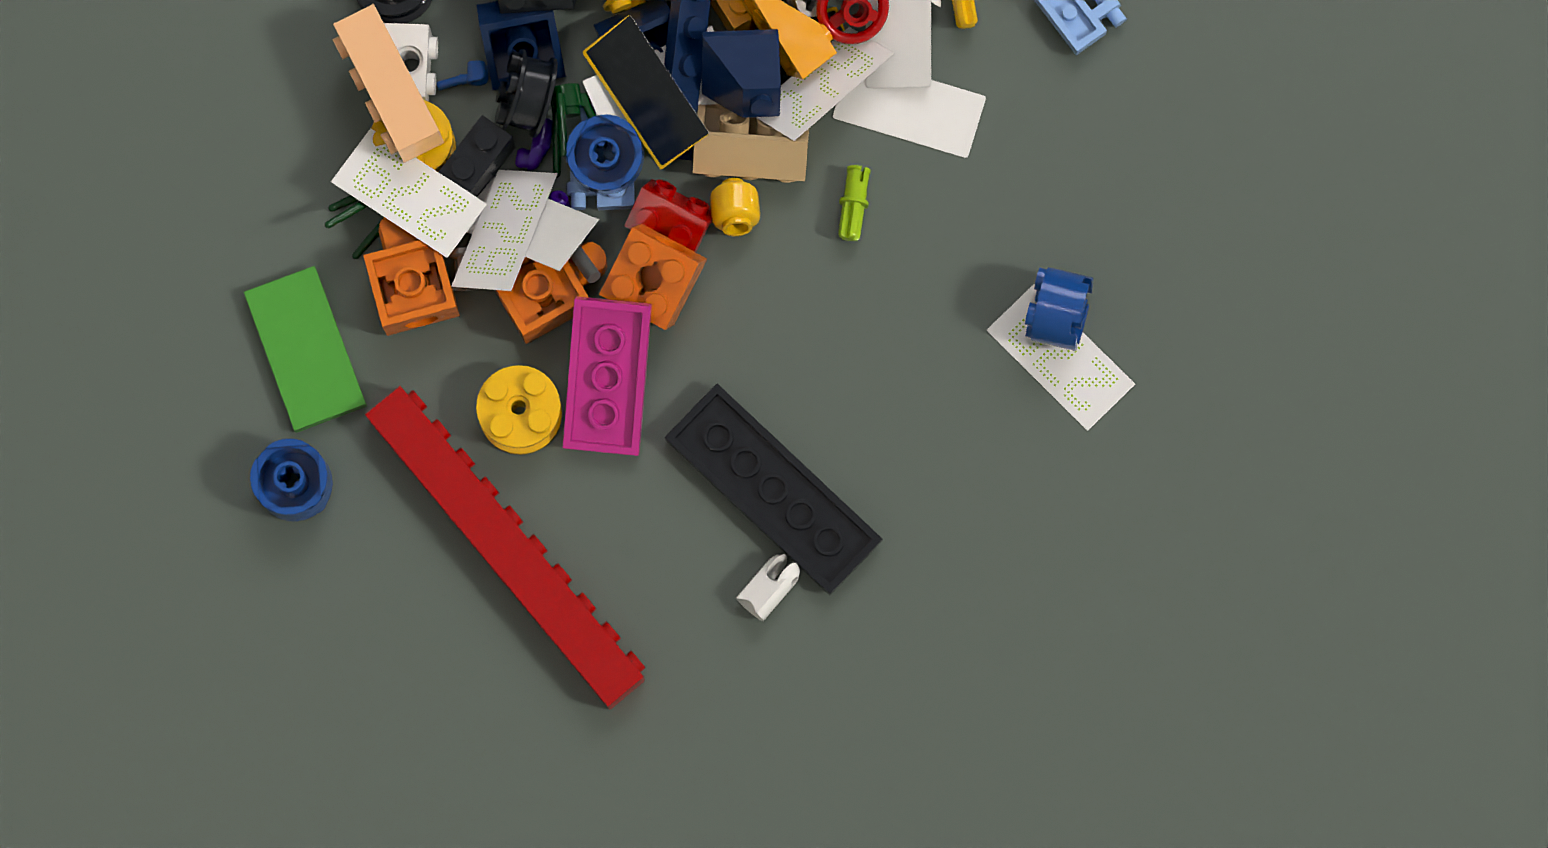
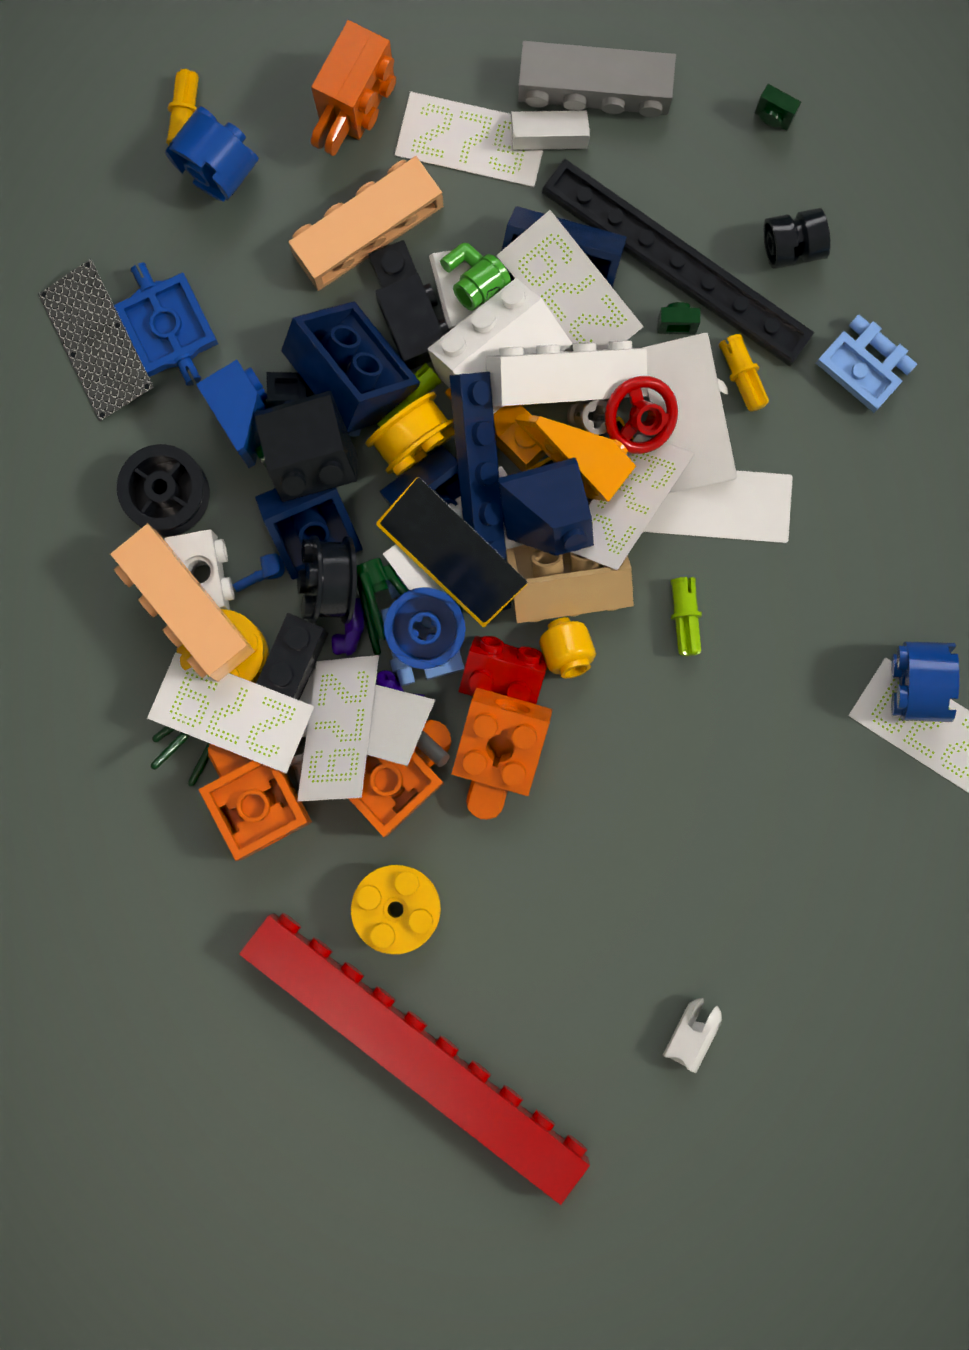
camera: 10 degrees left, 5 degrees up
(275, 466) = (170, 1059): blue brick -> none
(305, 349) = (162, 892): bright green tile -> none
(607, 376) = (479, 856): dark pink plate -> none
(773, 489) = (674, 932): black plate -> none

